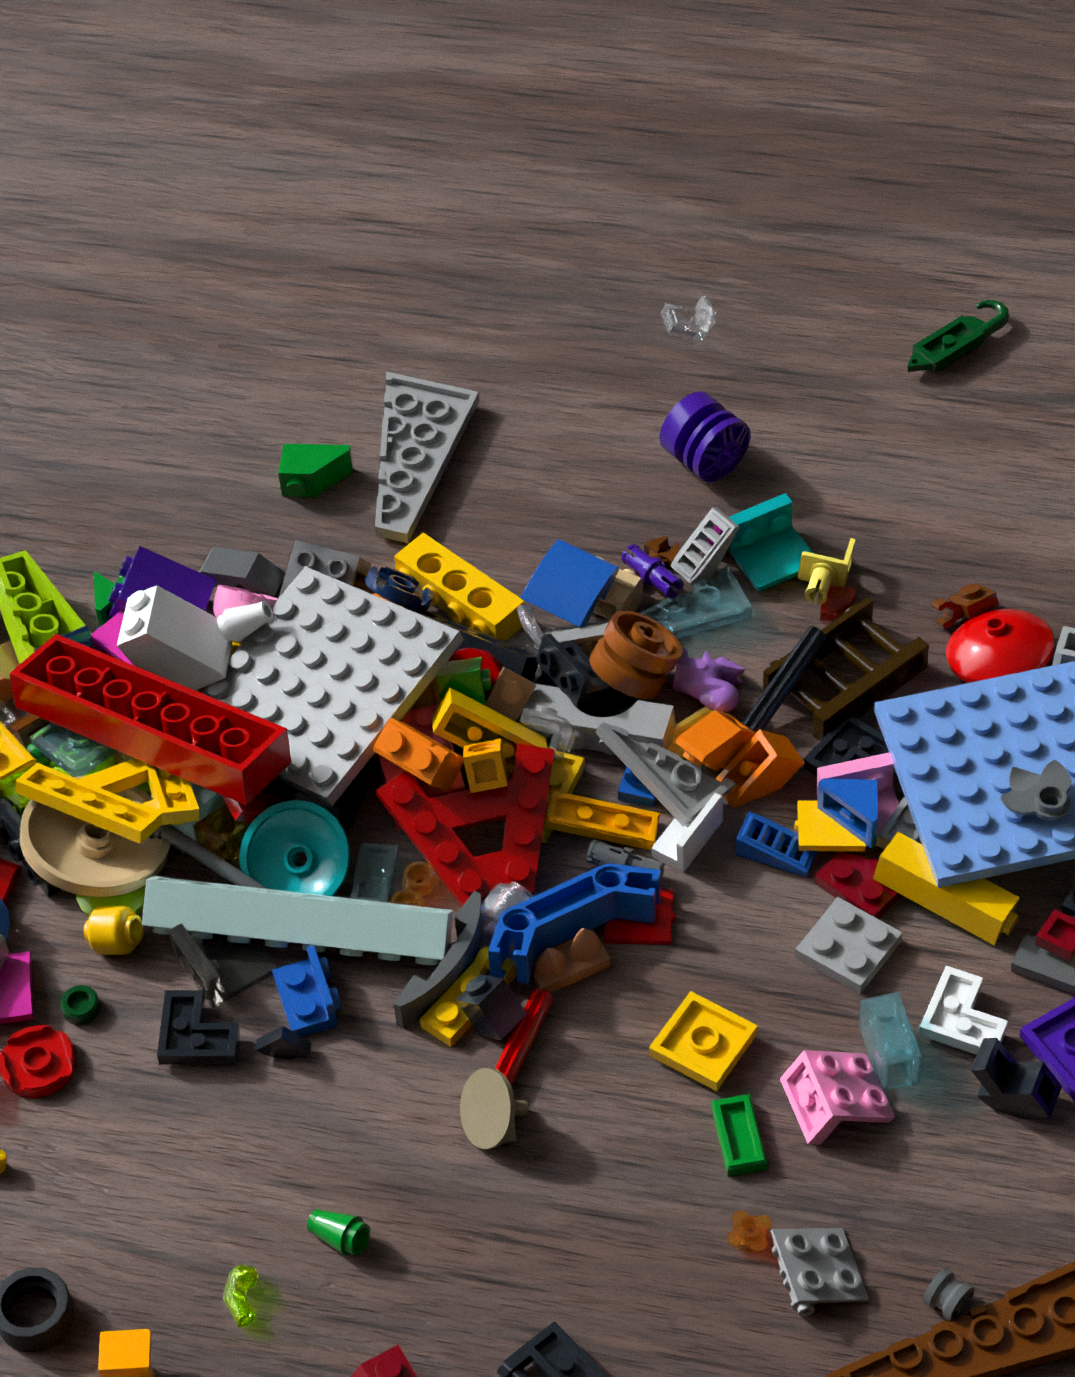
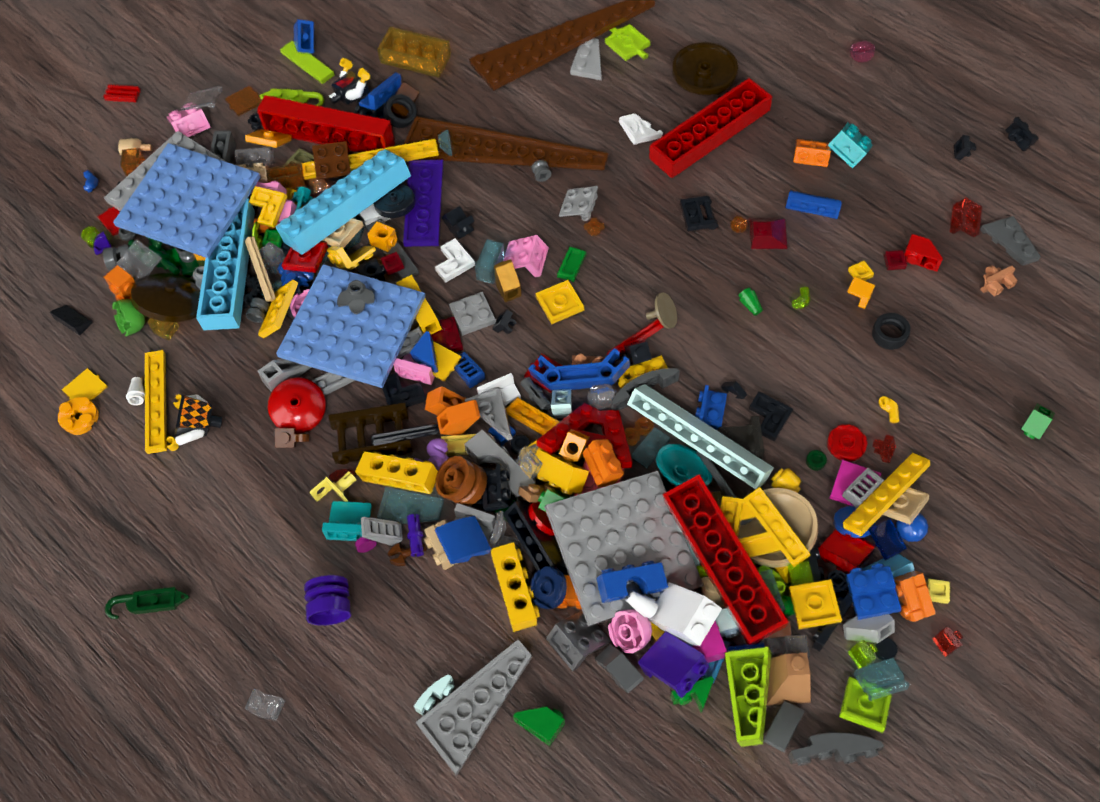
camera: 150 degrees left, 10 degrees up
(258, 647) = (649, 577): none -> blue arch
(476, 431) = (439, 689): none -> light aqua slope
(564, 851) = (561, 403): none -> light aqua slope
(596, 782) = (519, 442): none -> black tile
(743, 623) = (397, 472): none -> yellow brick
(776, 947) = (503, 321): none -> black tile
(823, 1012) = (507, 280): none -> slope

